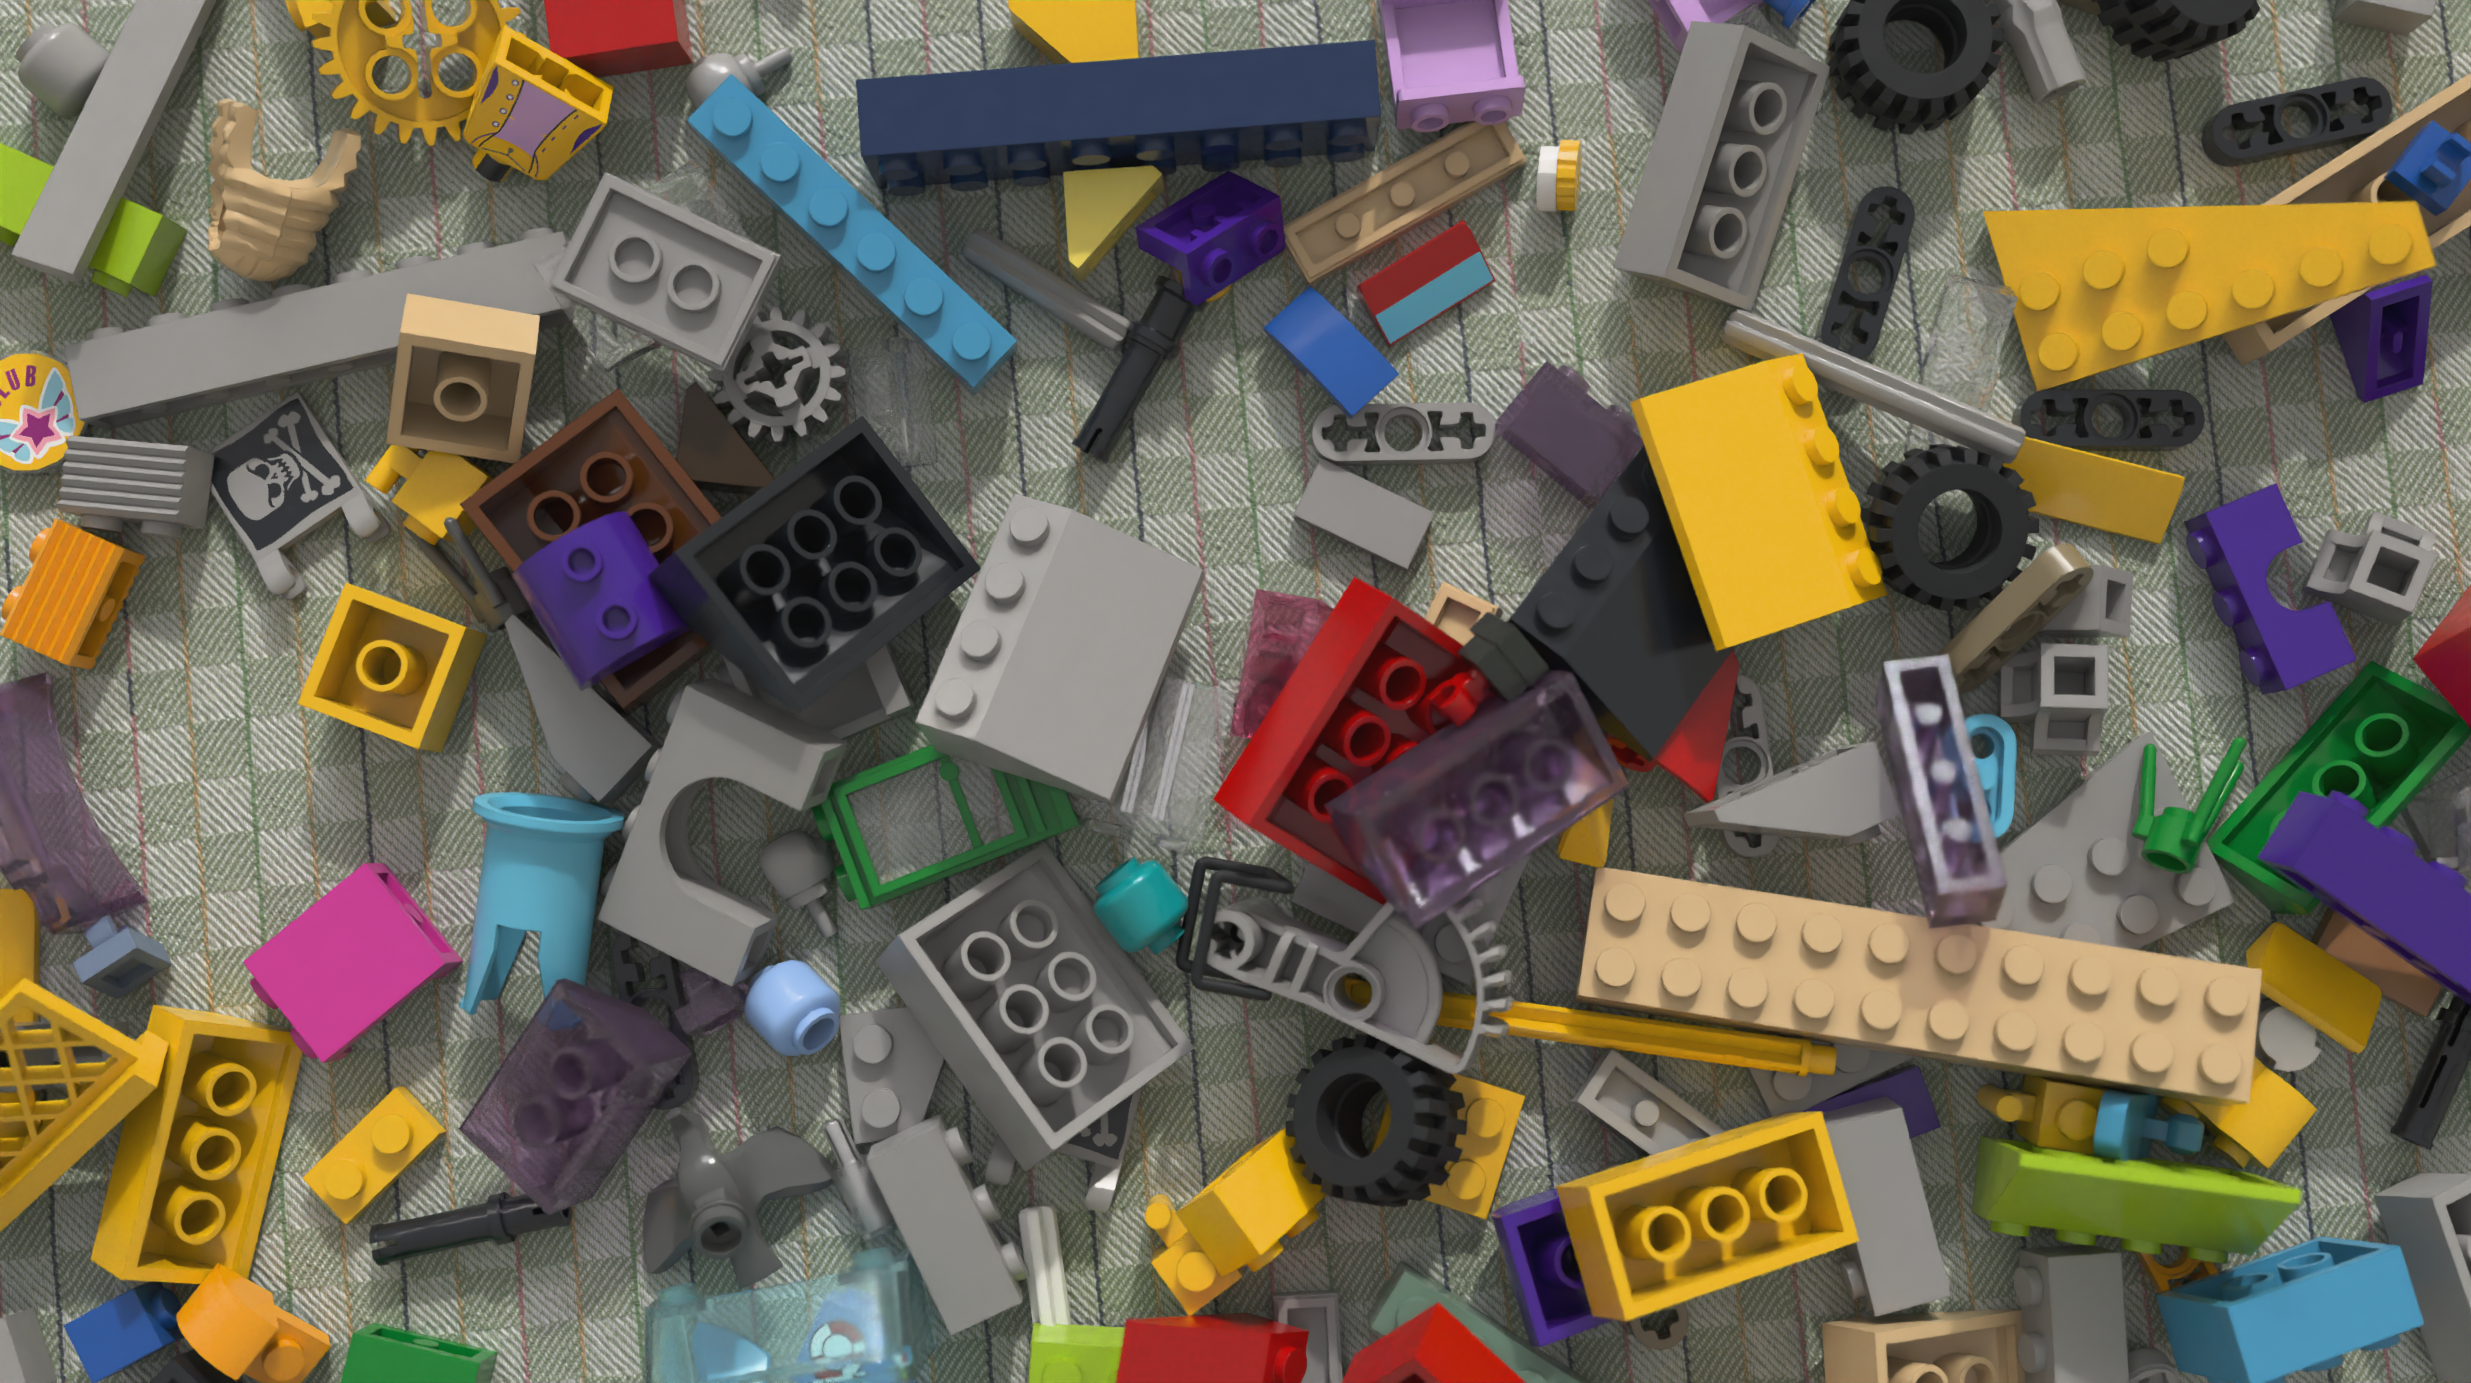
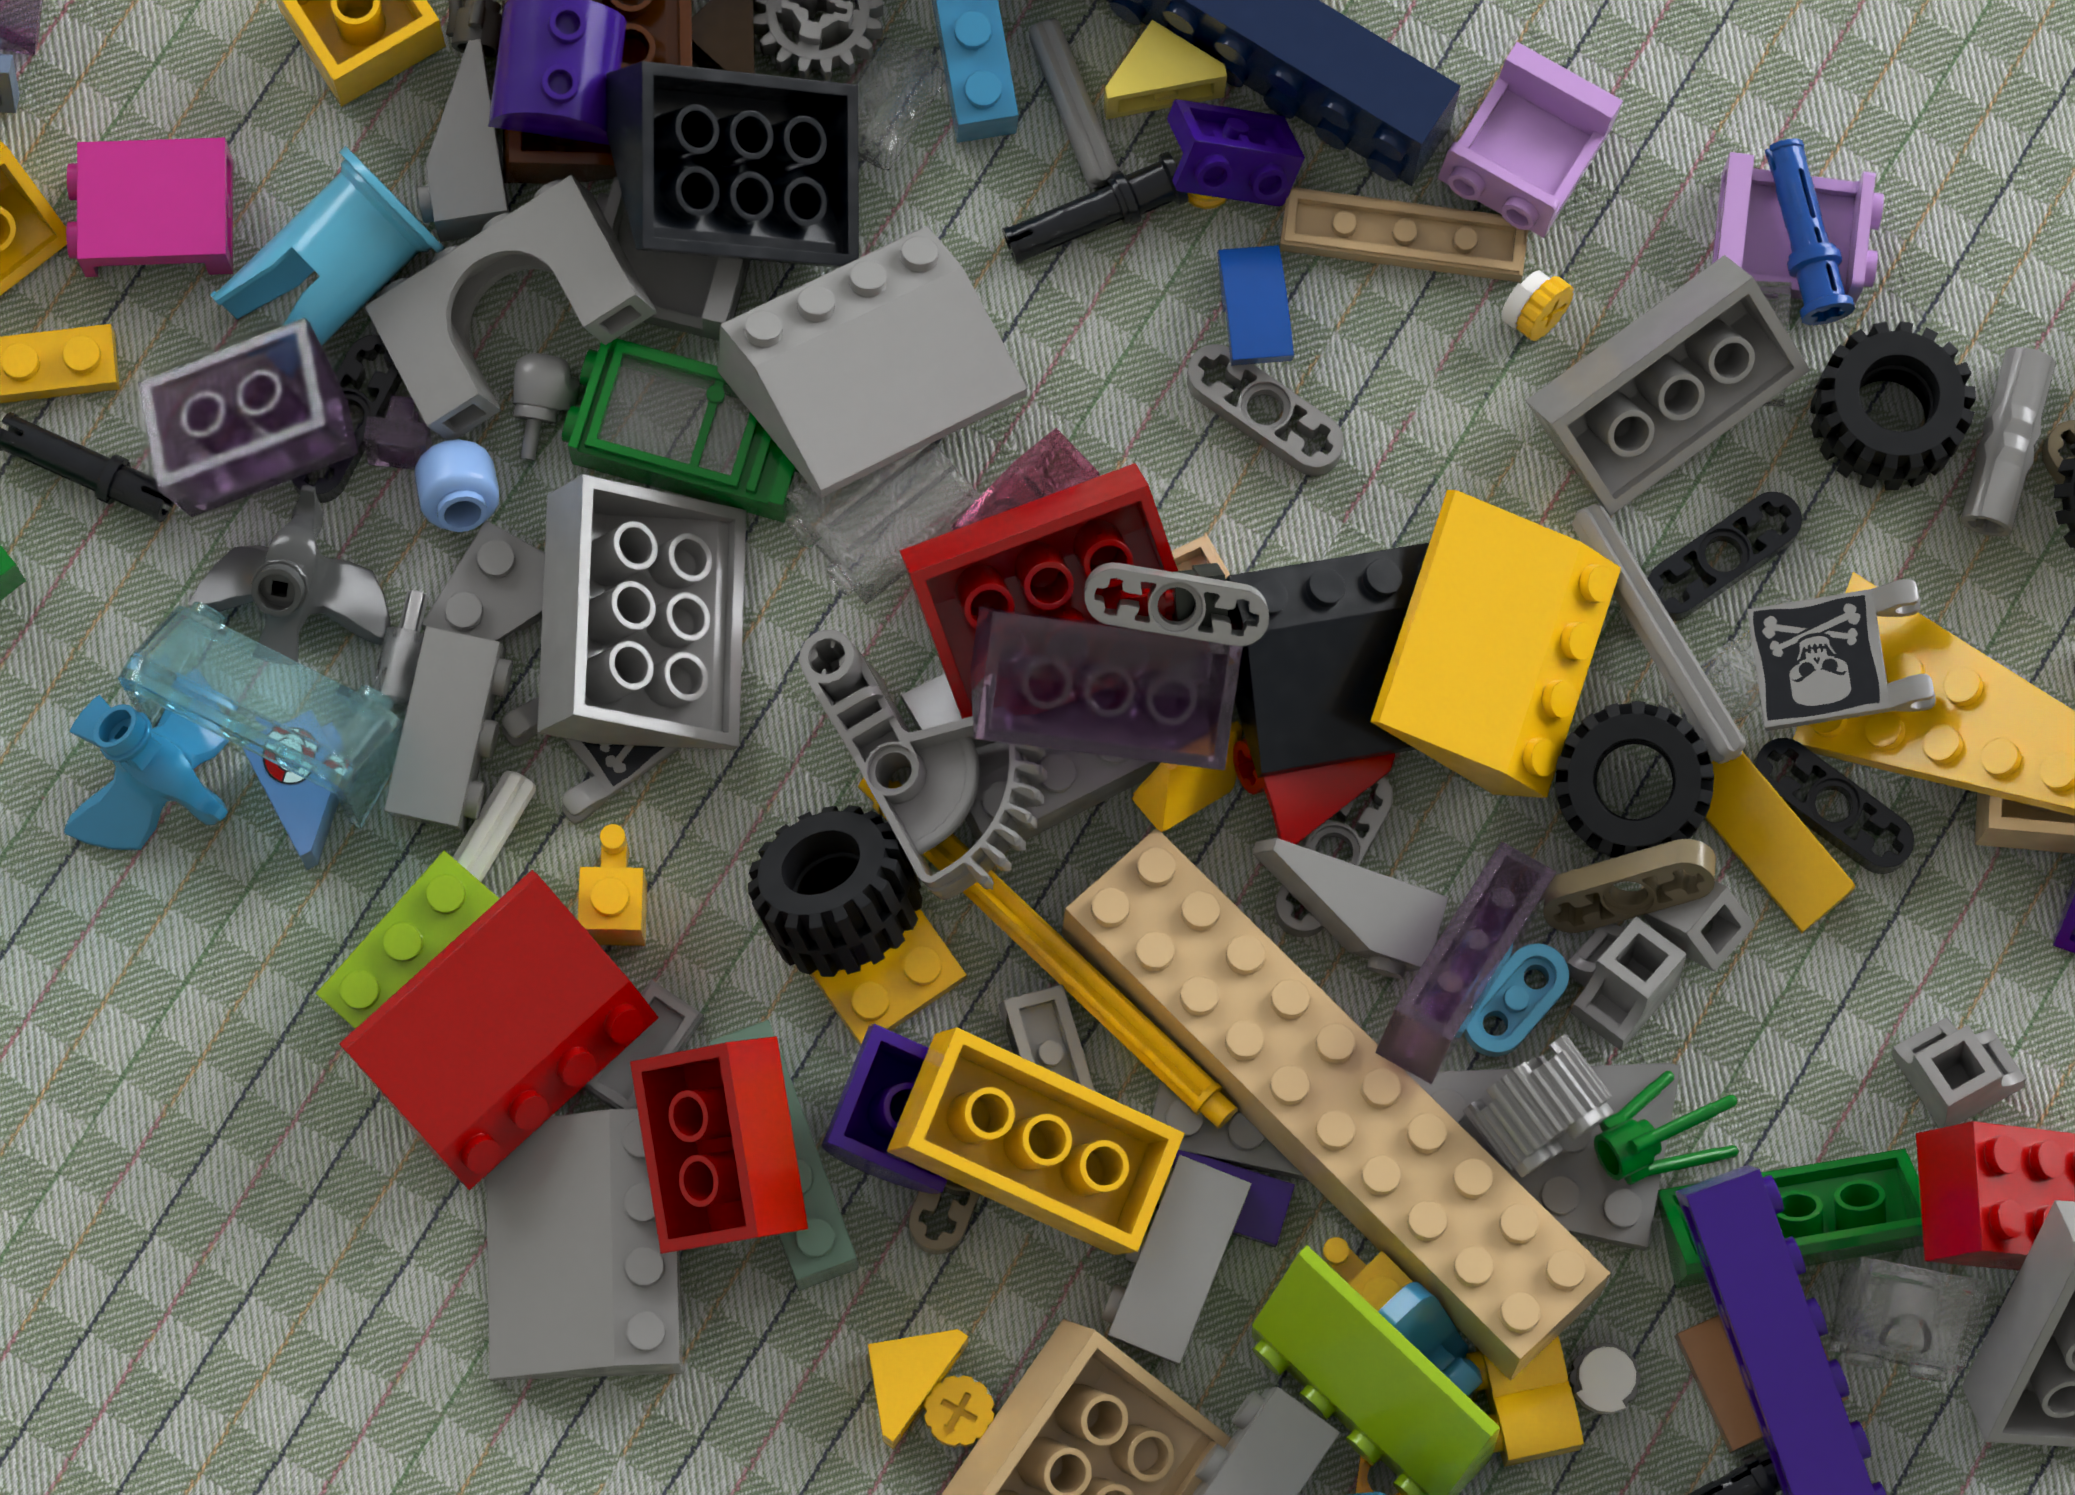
camera: 30 degrees right, 10 degrees down
(1141, 906) = (782, 606): teal head -> none
(1229, 873) = (875, 628): black piece -> none
(1253, 1206) = (691, 884): yellow brick -> none
(1363, 514) = (1186, 448): light grey tile -> none
(1425, 283) = (1370, 309): slope -> none
(1547, 678) = (1226, 598): none -> light grey beam
(1569, 432) = (1391, 489): clear purple brick -> none
(2037, 306) = (1827, 661): none -> flag
(2093, 868) = (1540, 1105): none -> light grey brick
(2276, 643) = (1841, 1076): dark purple arch -> none
(2315, 986) = (1658, 1353): yellow slope -> none

